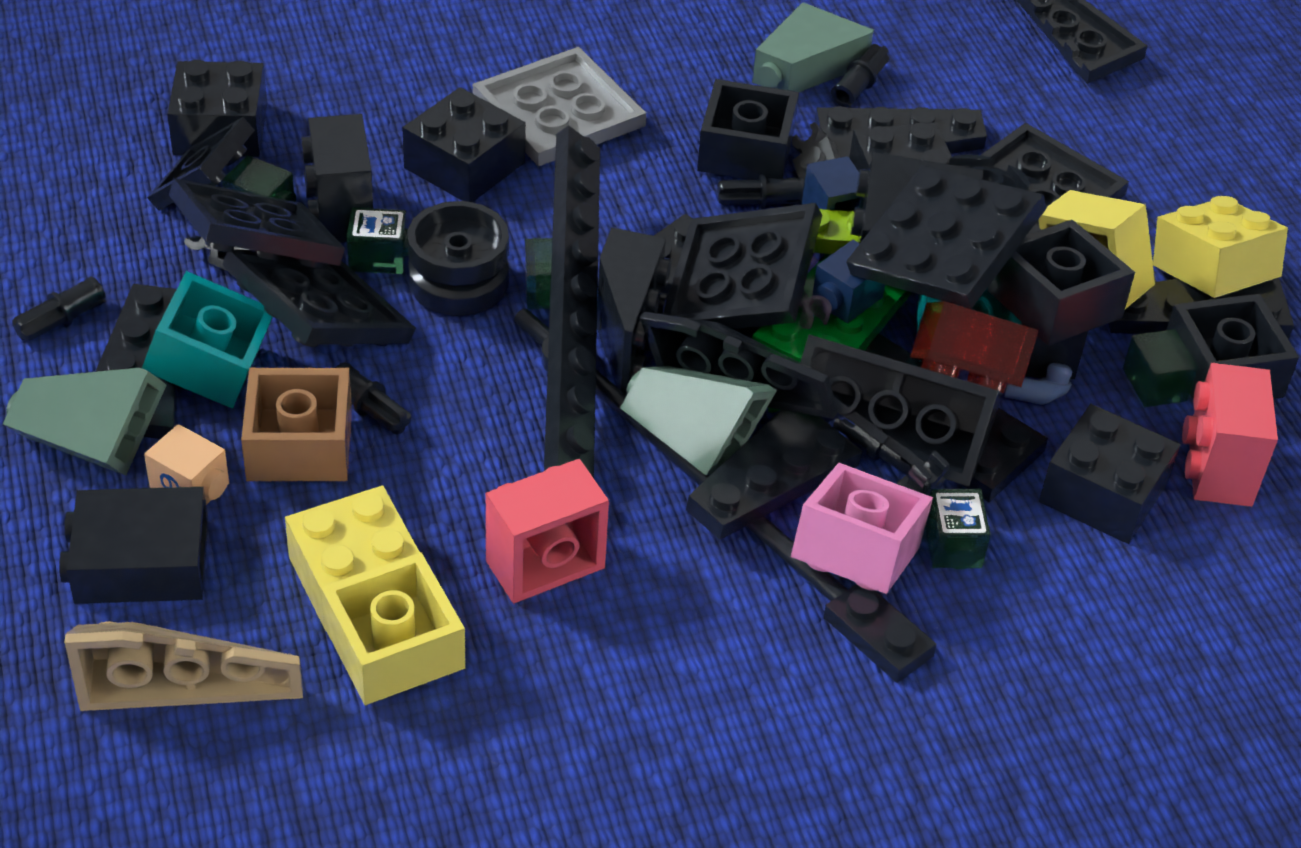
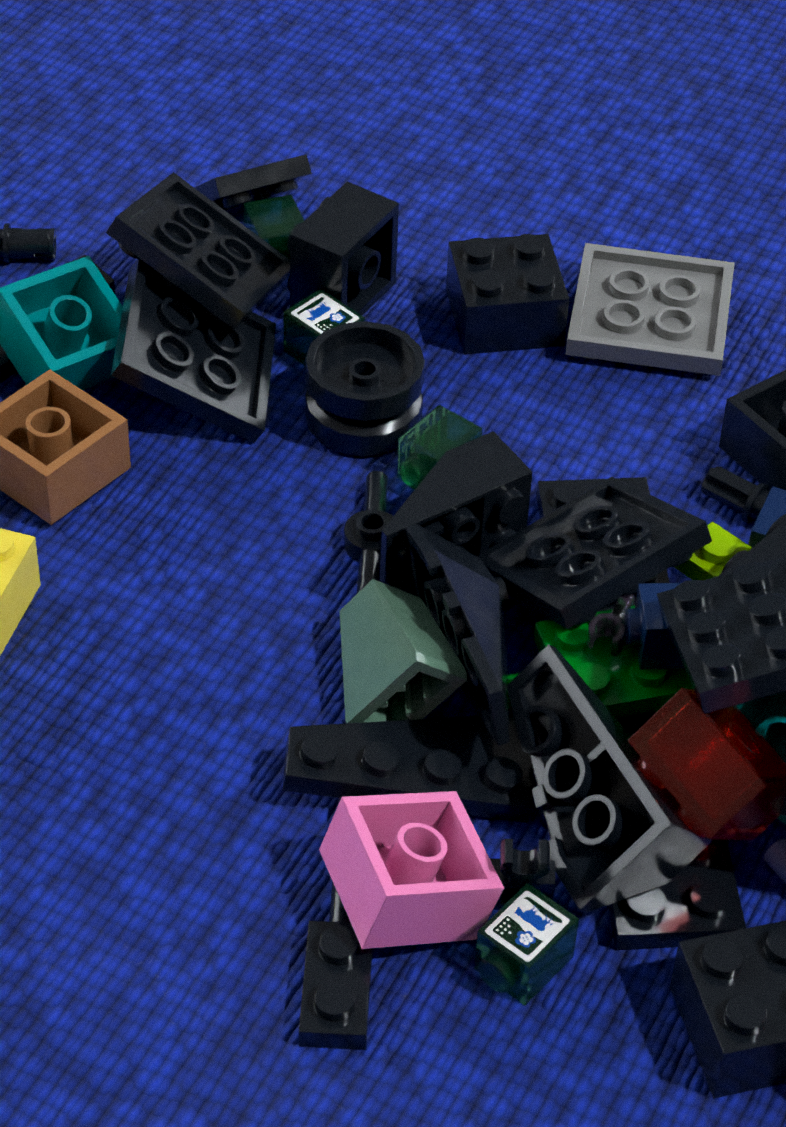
camera: 45 degrees right, 0 degrees up
(214, 96) = (338, 134): black brick -> none
(371, 400) = (151, 465): black axle -> none
(546, 530) = (123, 668): coral brick -> none
(573, 303) = (354, 527): black plate -> none

